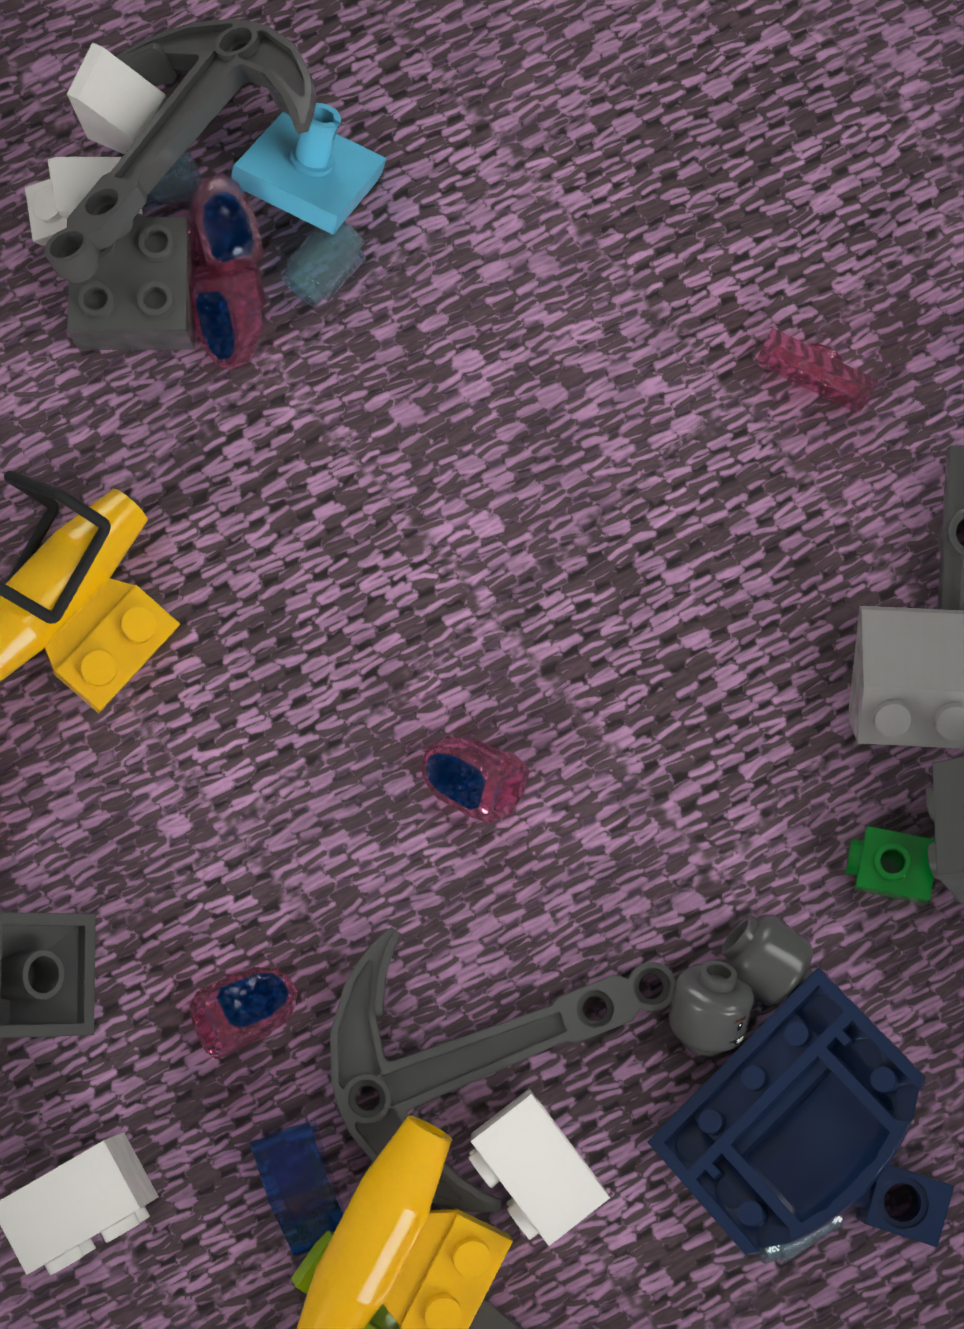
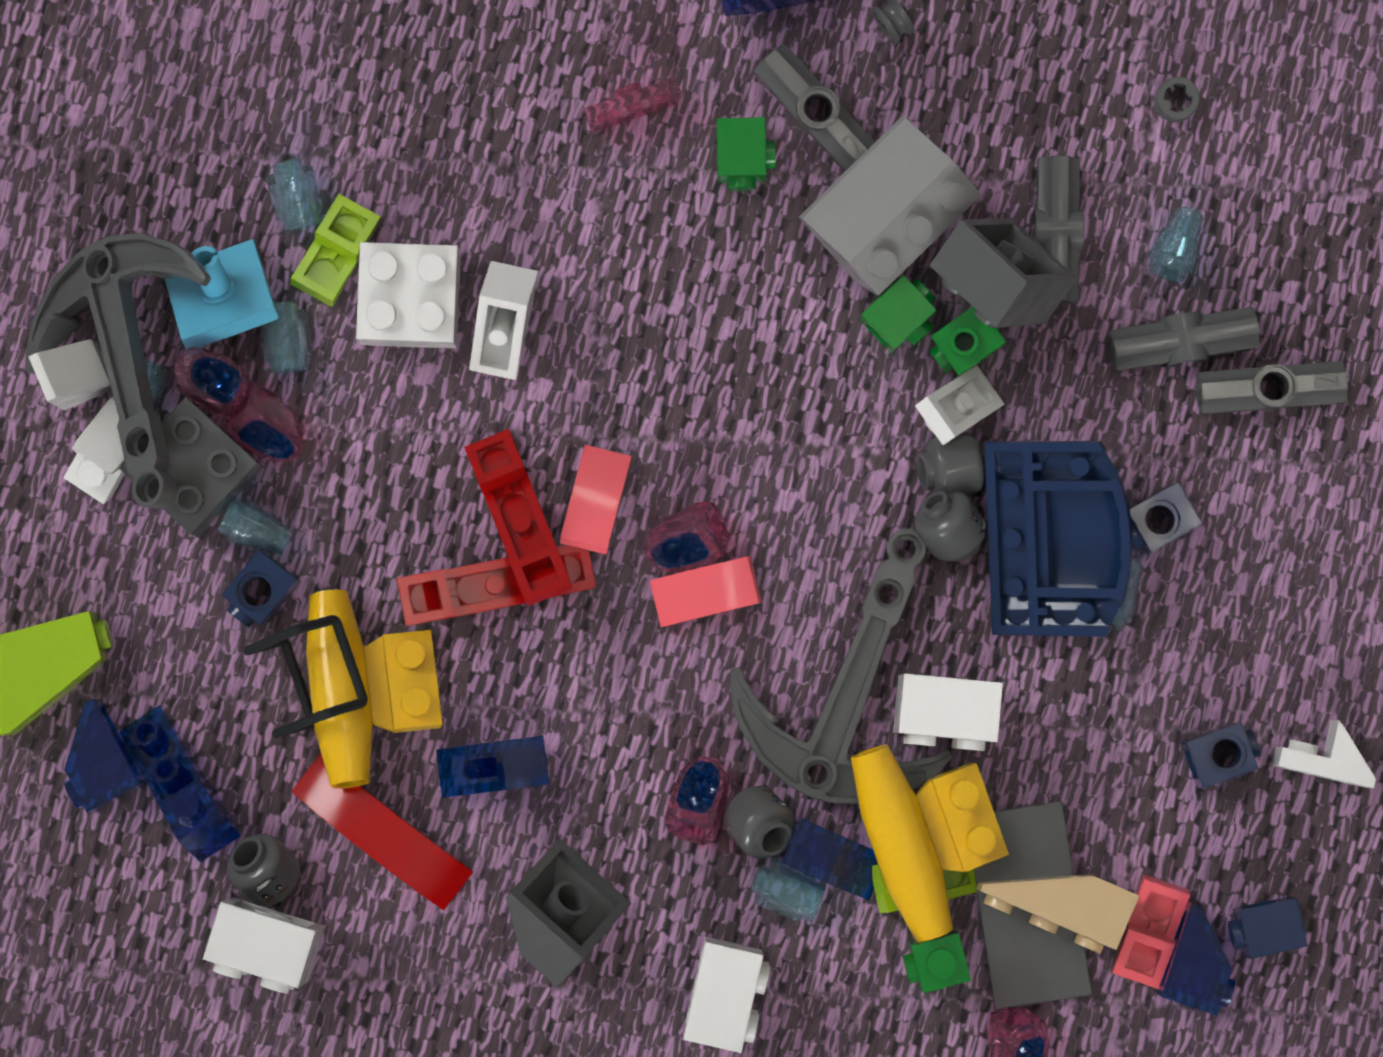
camera: 50 degrees left, 5 degrees up
(99, 455) = (281, 583): none -> dark blue brick
(104, 793) = (492, 766): none -> clear blue slope
(129, 385) = (253, 527): none -> clear light blue cone
(231, 1173) = (787, 891): none -> clear light blue brick
(271, 1085) = (759, 822): none -> dark grey head
(272, 642) = (479, 587): none -> red slope
(351, 609) = (518, 517): none -> red slope
(432, 661) = (595, 499): none -> coral slope
(442, 838) = (705, 591): none -> coral slope
(443, 238) = (335, 250): none -> lime slope
(457, 158) = (295, 195): none -> clear light blue brick
(461, 330) = (408, 295): none -> white brick
(517, 432) = (502, 319): none -> white slope
(828, 912) = (959, 405): none -> white slope
(859, 781) = (900, 314): none -> green brick
(868, 505) = (743, 152): none -> green brick

